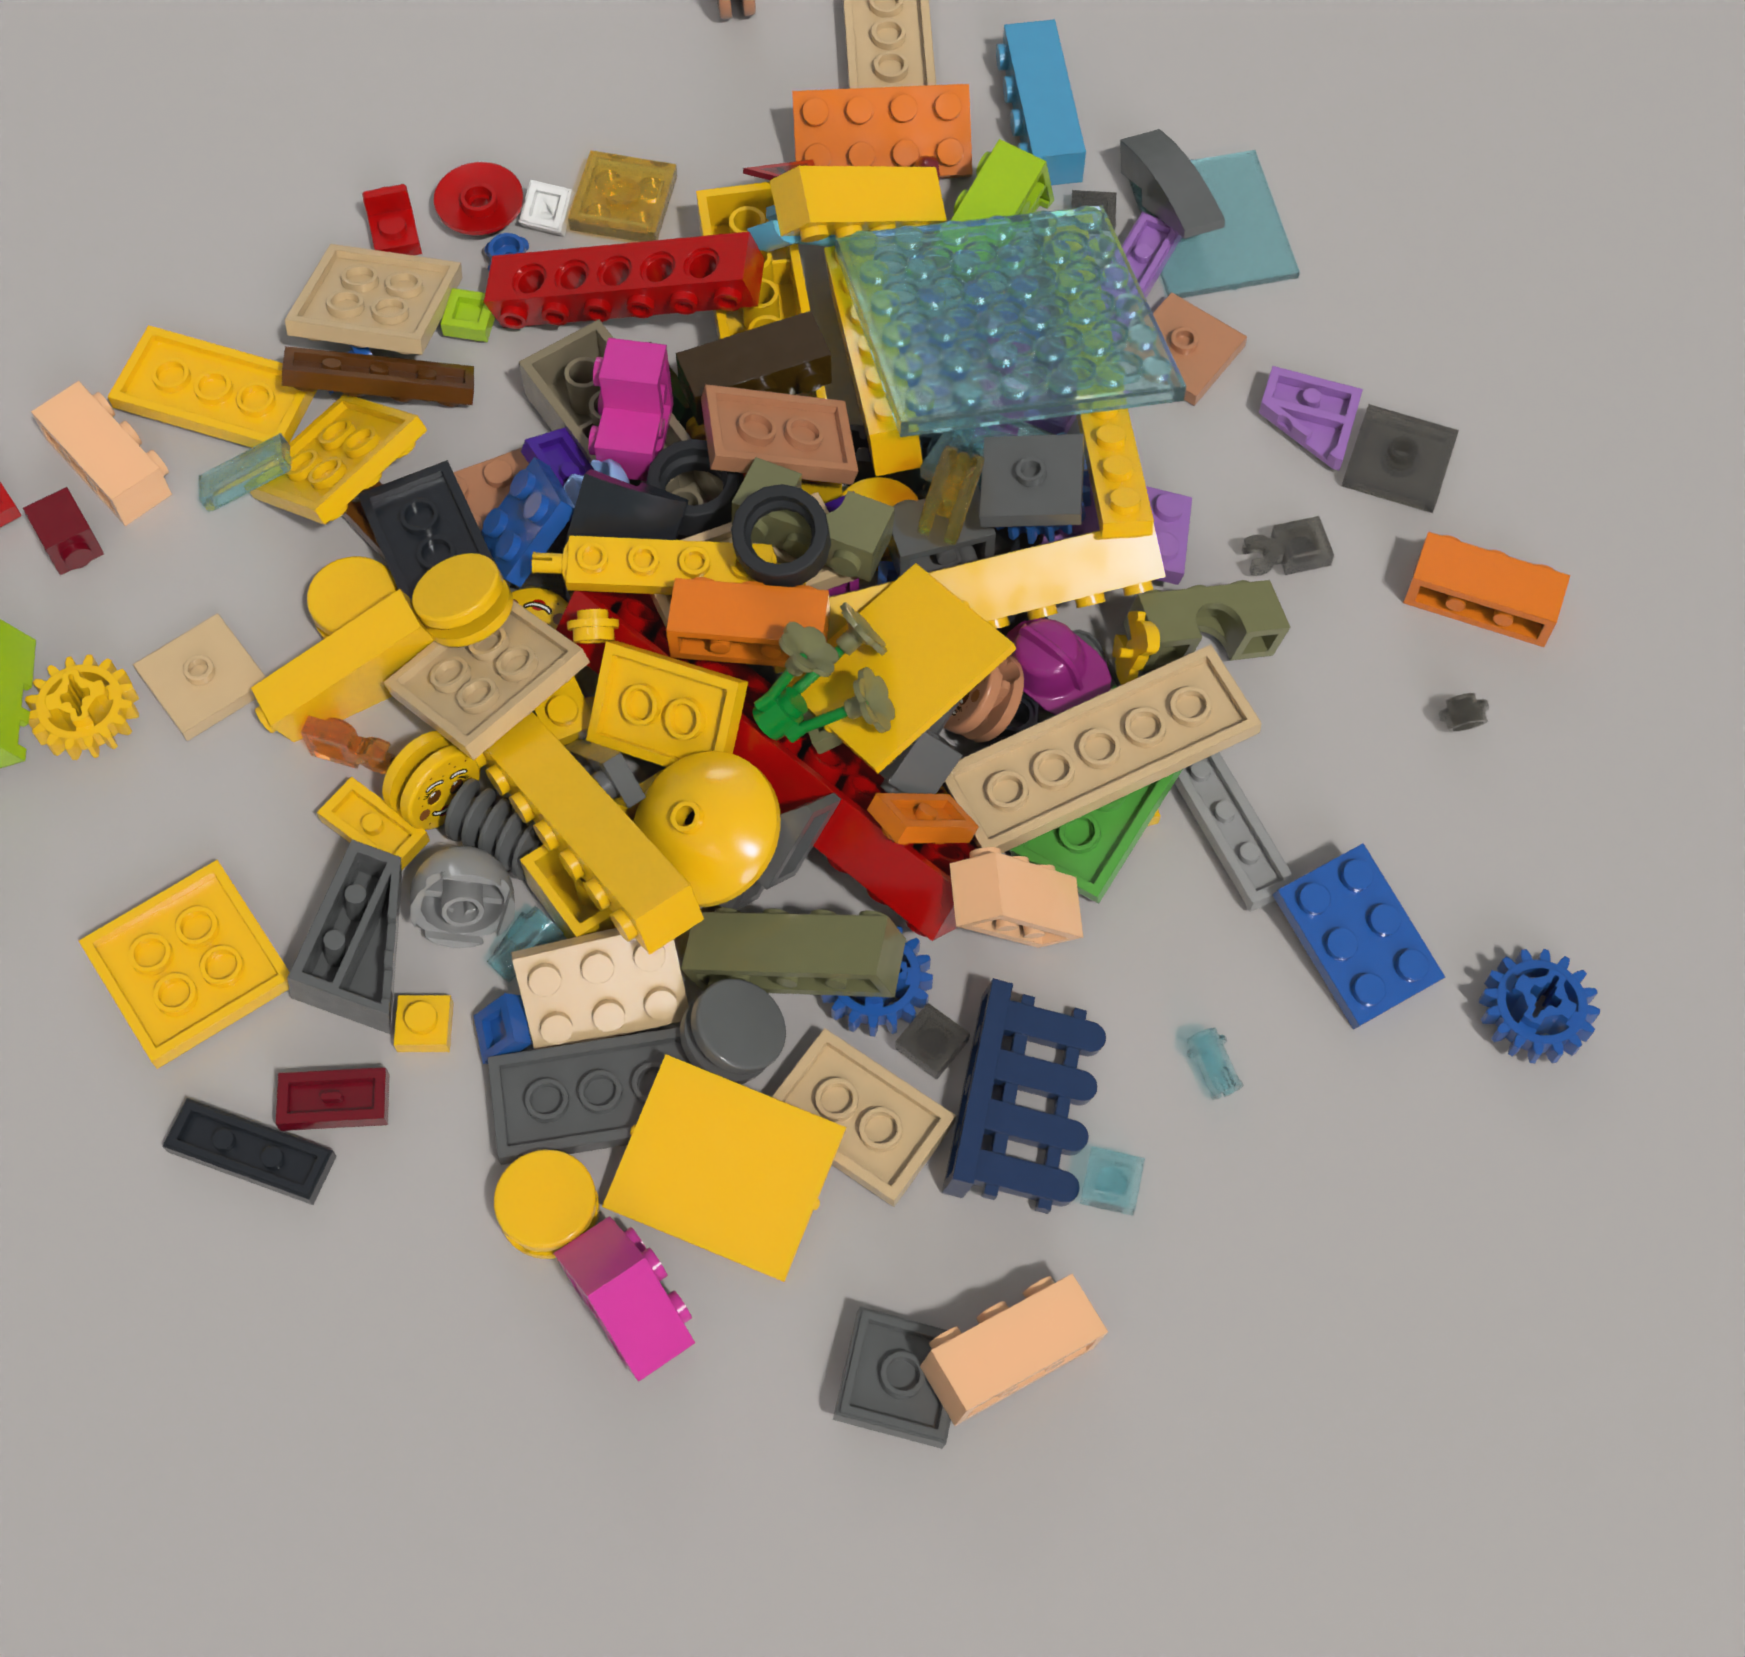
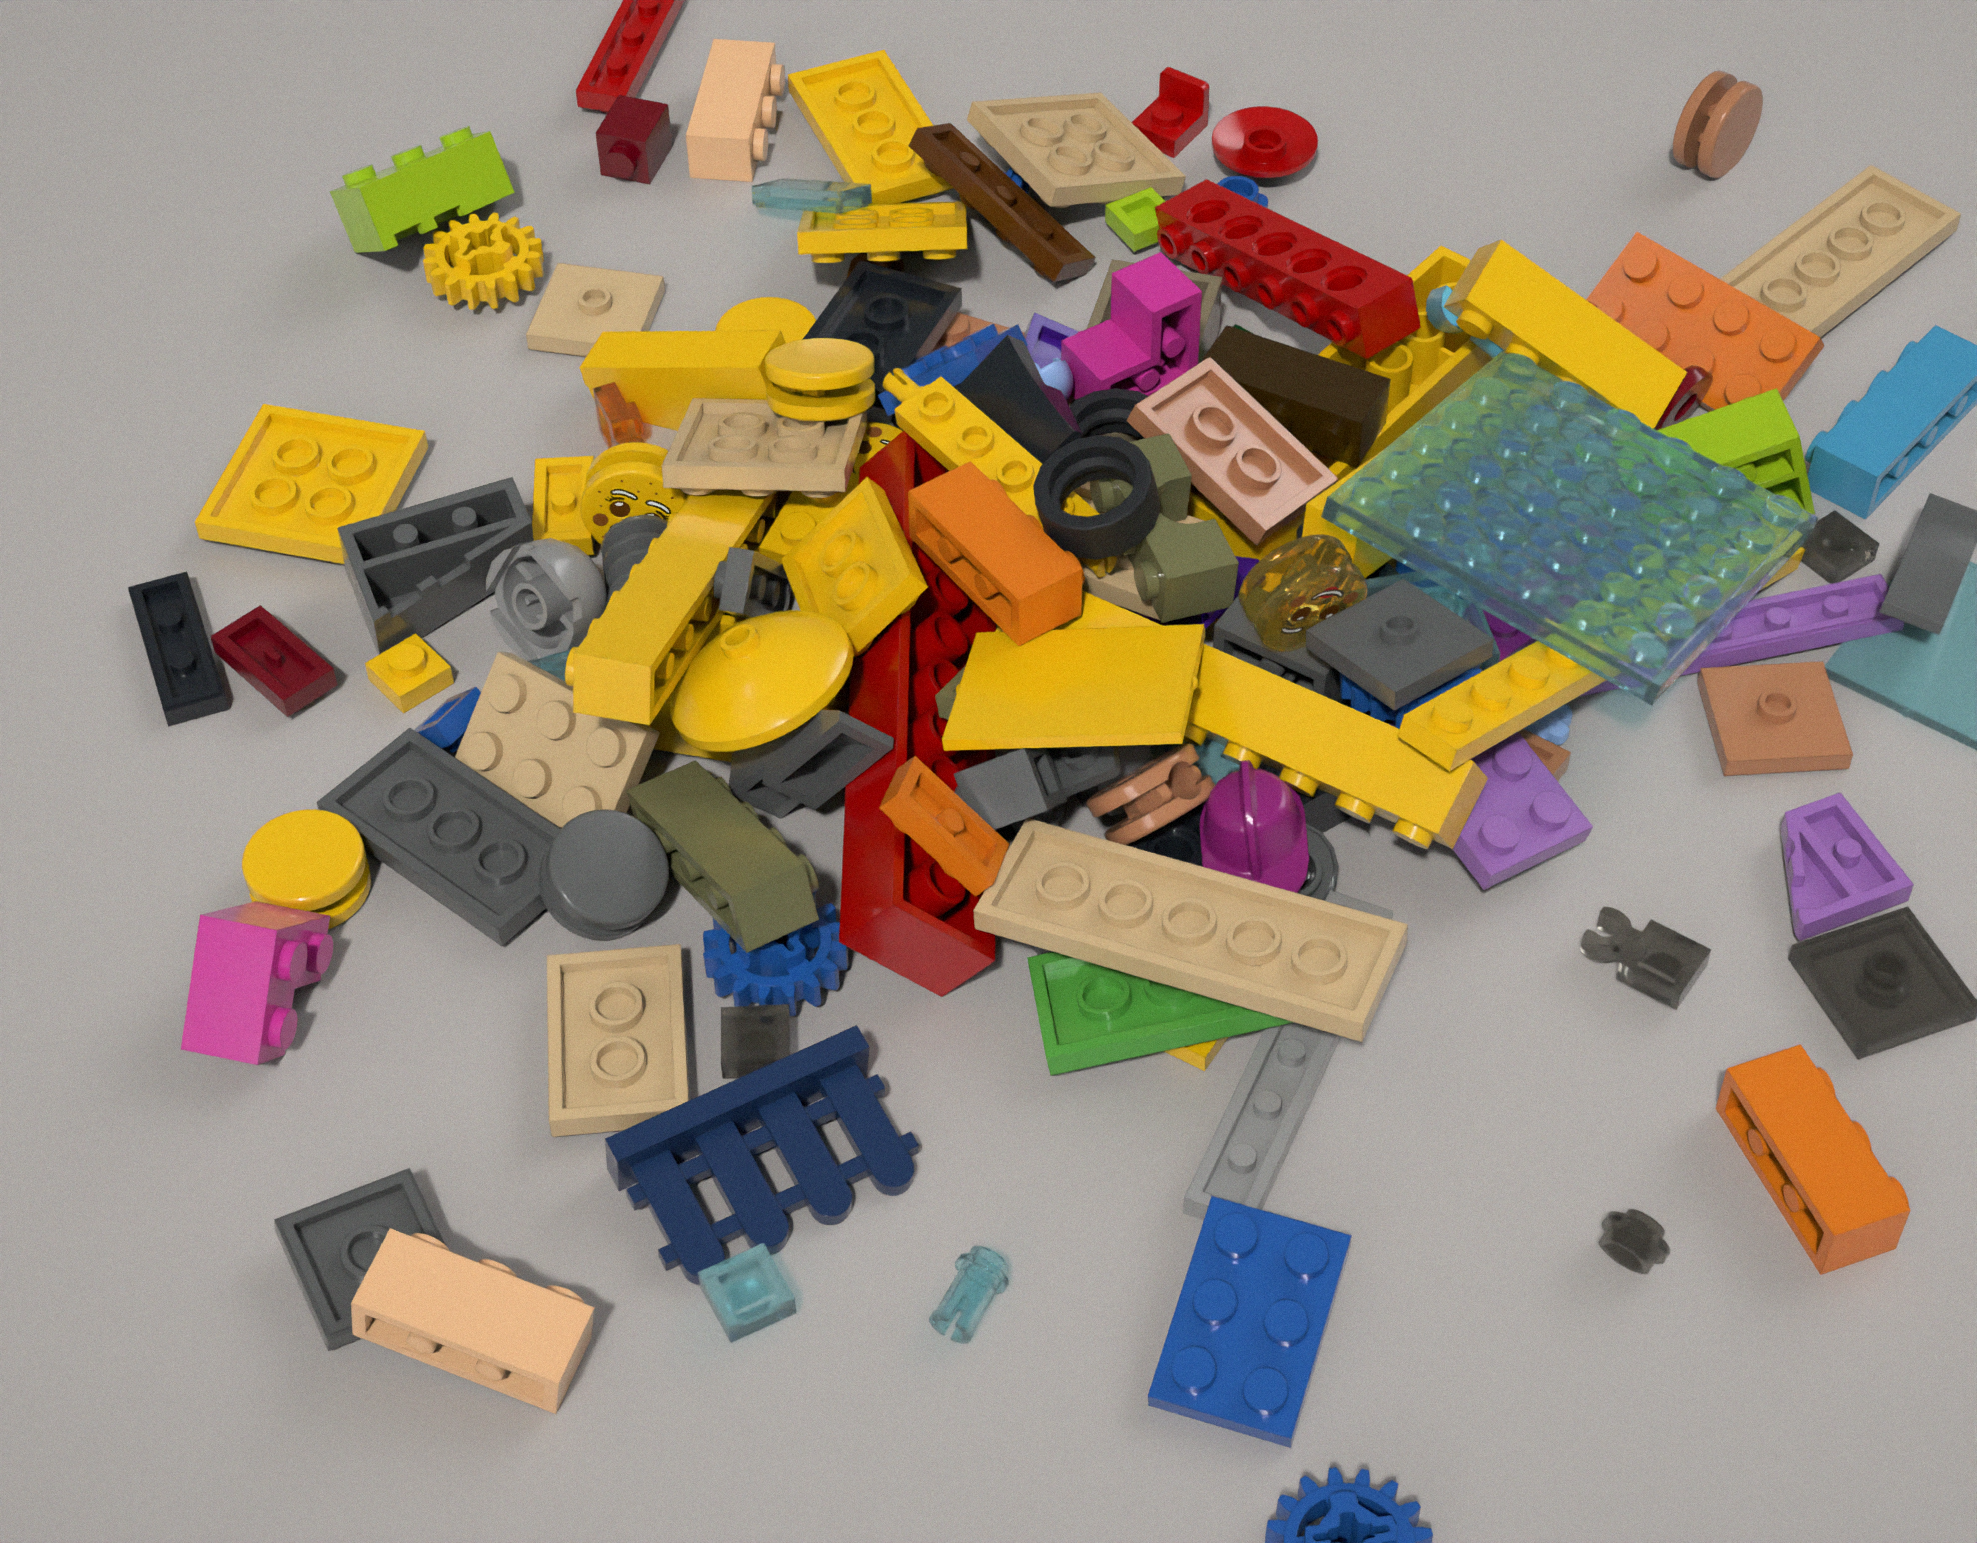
camera: 50 degrees right, 15 degrees down
(547, 208) = (1316, 190): white tile -> none
(593, 626) = (874, 460): yellow plate -> none
(622, 197) = (1393, 222): clear yellow plate -> none
(724, 1167) = (461, 970): yellow piece -> none
(783, 710) = (1000, 667): olive plant -> none
(1015, 899) = (948, 970): light nougat brick -> none
(1134, 653) = (1359, 870): yellow piece -> none
(1238, 614) = (1504, 951): olive arch -> none

